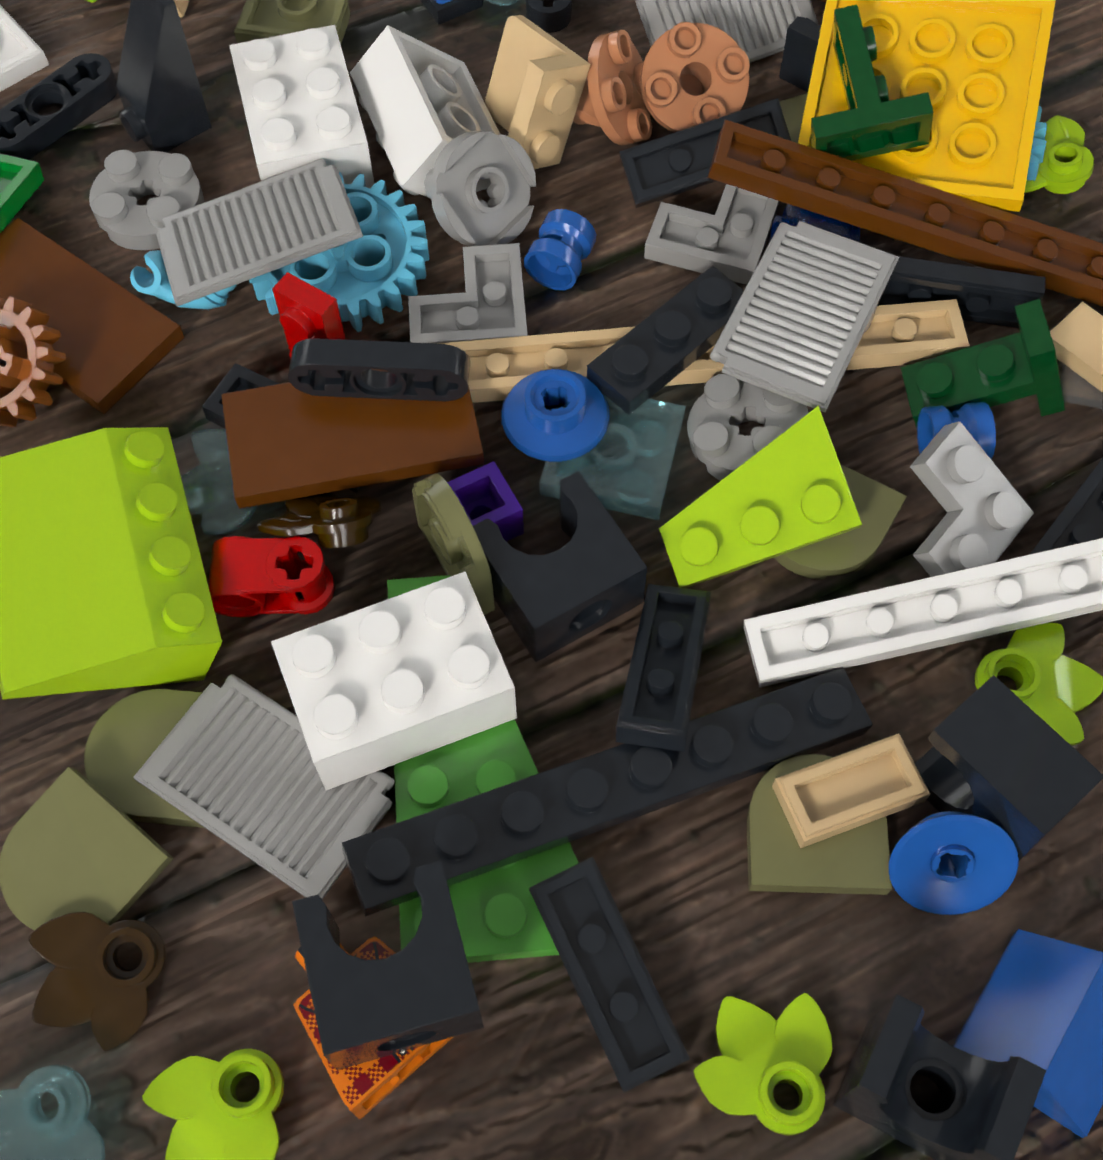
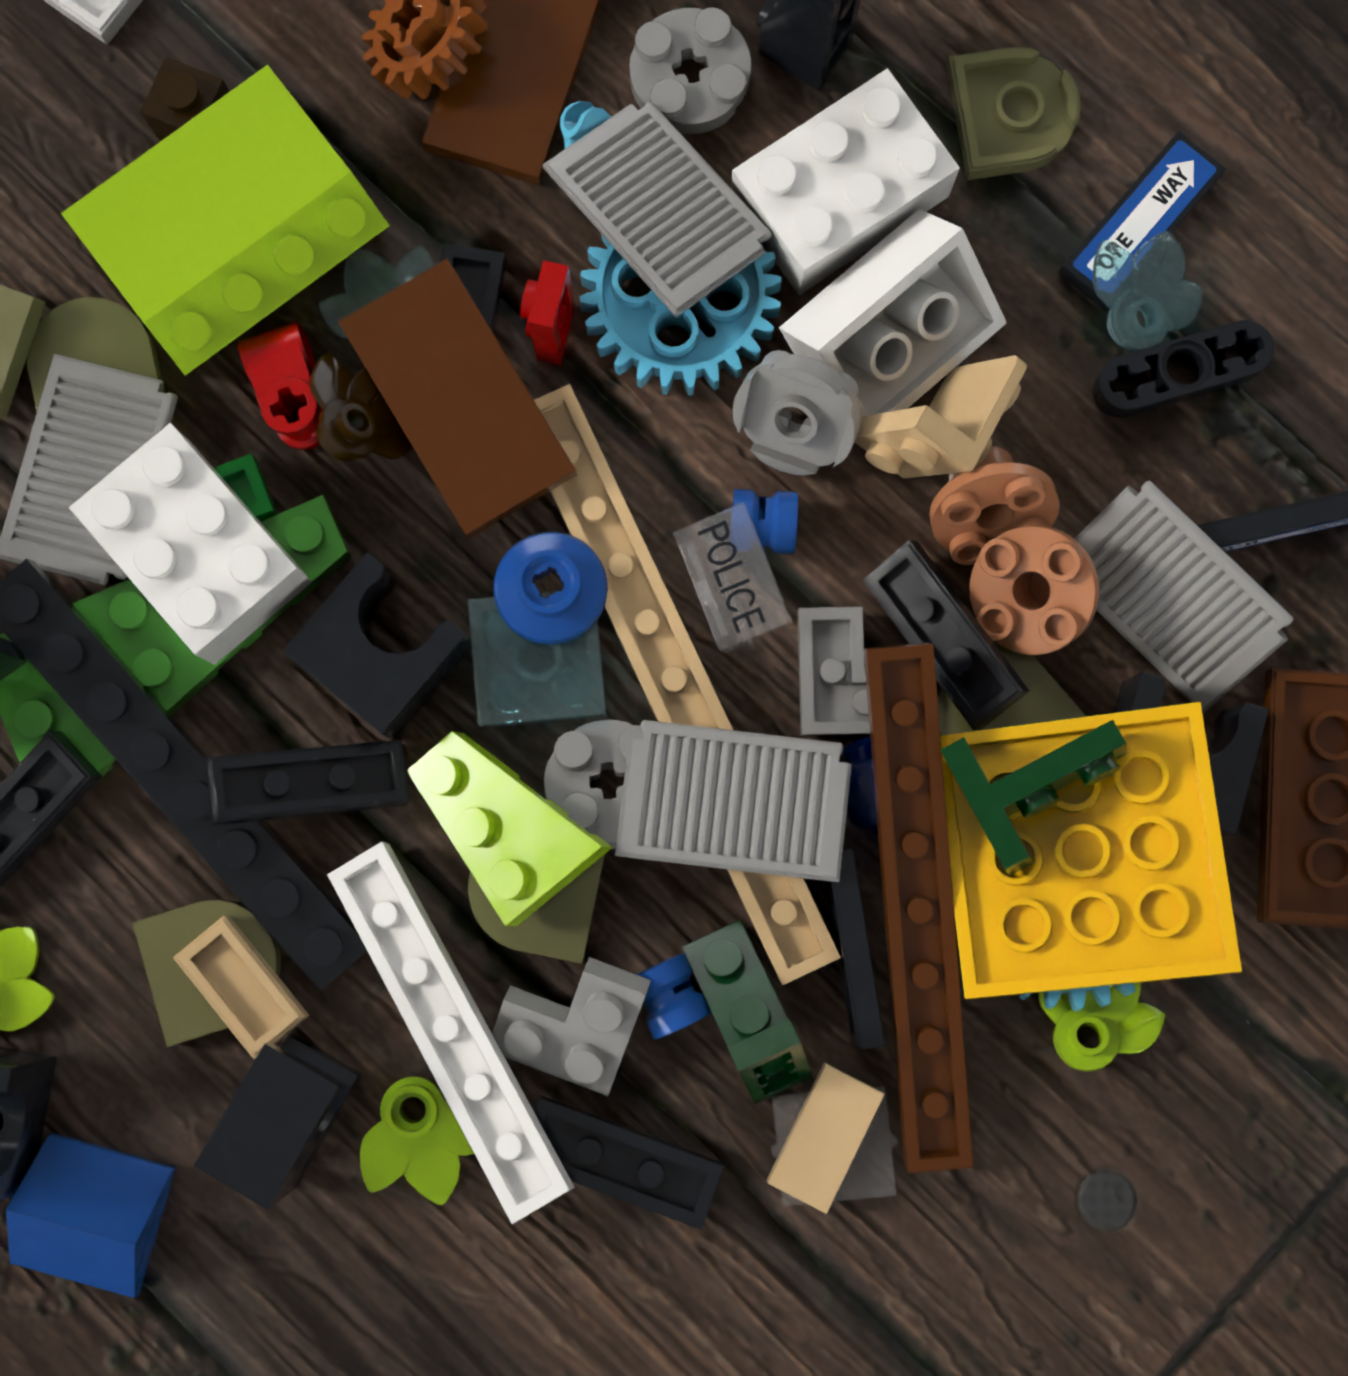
camera: 70 degrees right, 20 degrees up
(346, 370) = (506, 401): black beam -> none
(452, 536) = (363, 530): olive tile -> none
(487, 309) = (662, 477): light grey plate -> none
(488, 495) = (407, 537): dark purple plate -> none
(604, 276) = (732, 578): none -> clear panel
(666, 341) = (672, 671): black plate -> none
(945, 884) = (200, 1089): blue piece -> none

